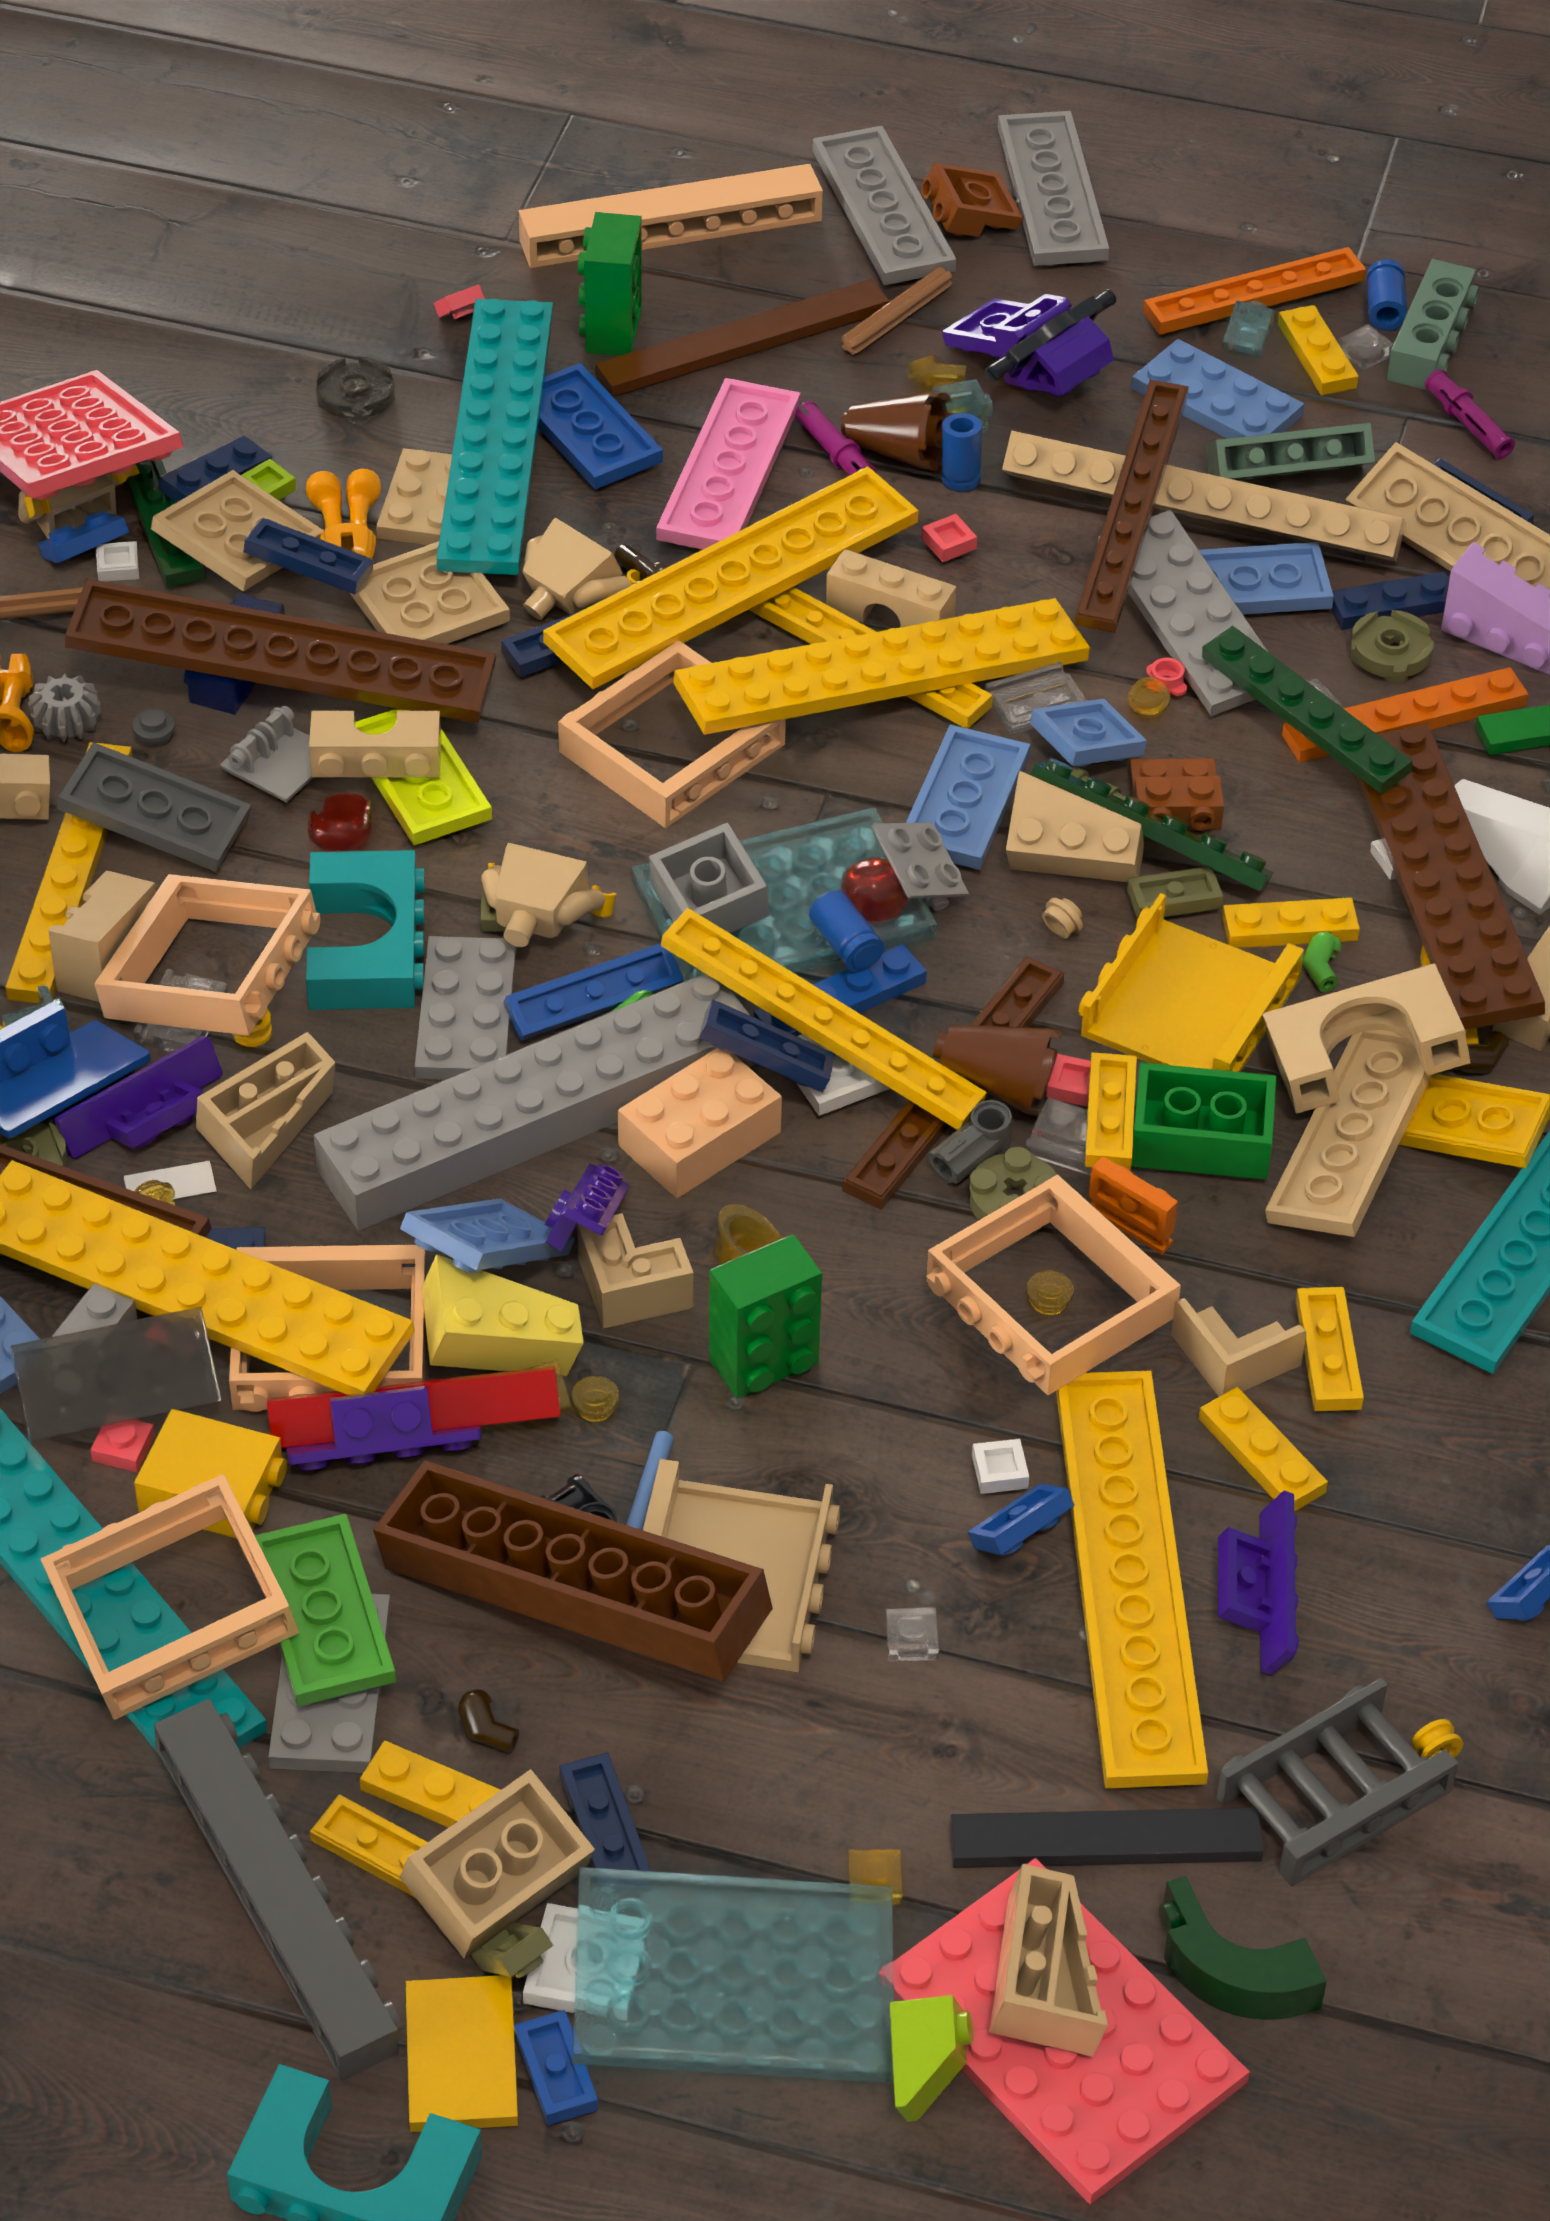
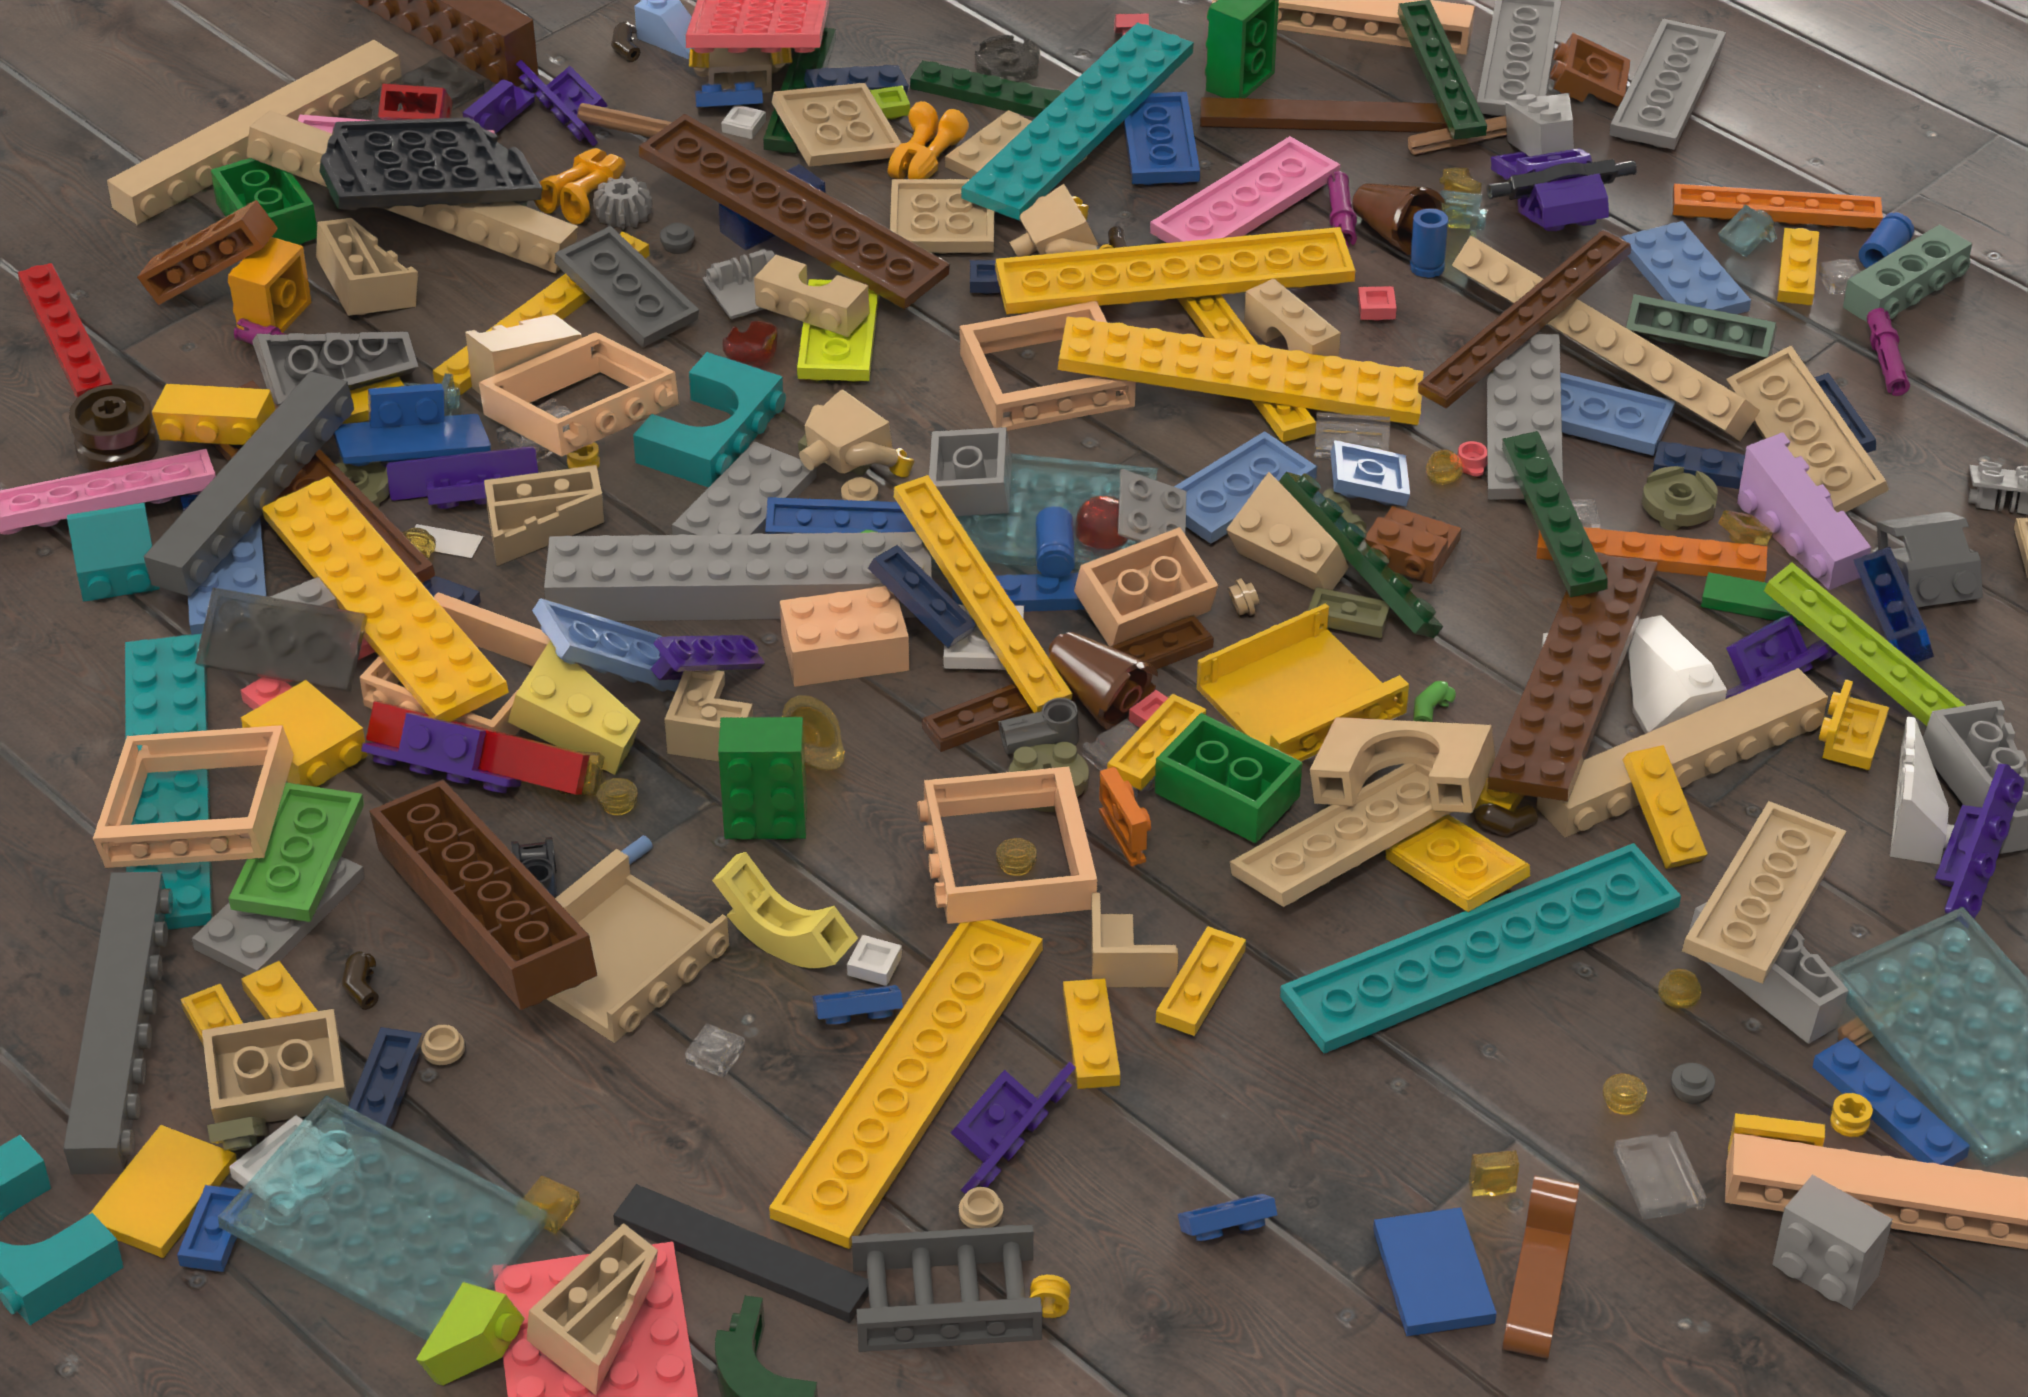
camera: 30 degrees right, 5 degrees down
(308, 556) = (867, 154): dark blue plate -> none
(361, 432) = (981, 89): none -> dark green plate
(582, 951) = (859, 489): none -> tan plate
(633, 1755) = (442, 1045): none -> tan plate
(834, 248) = (1442, 70): none -> dark green plate
(889, 1472) = (777, 925): none -> light yellow arch
(972, 946) = (1145, 587): none -> light nougat brick
(980, 280) = (1540, 124): none -> light grey wedge
(1289, 922) = (1425, 666): yellow plate -> none
(1301, 1683) = (981, 1208): none -> tan plate
(1477, 656) = (1745, 528): none -> clear yellow plate

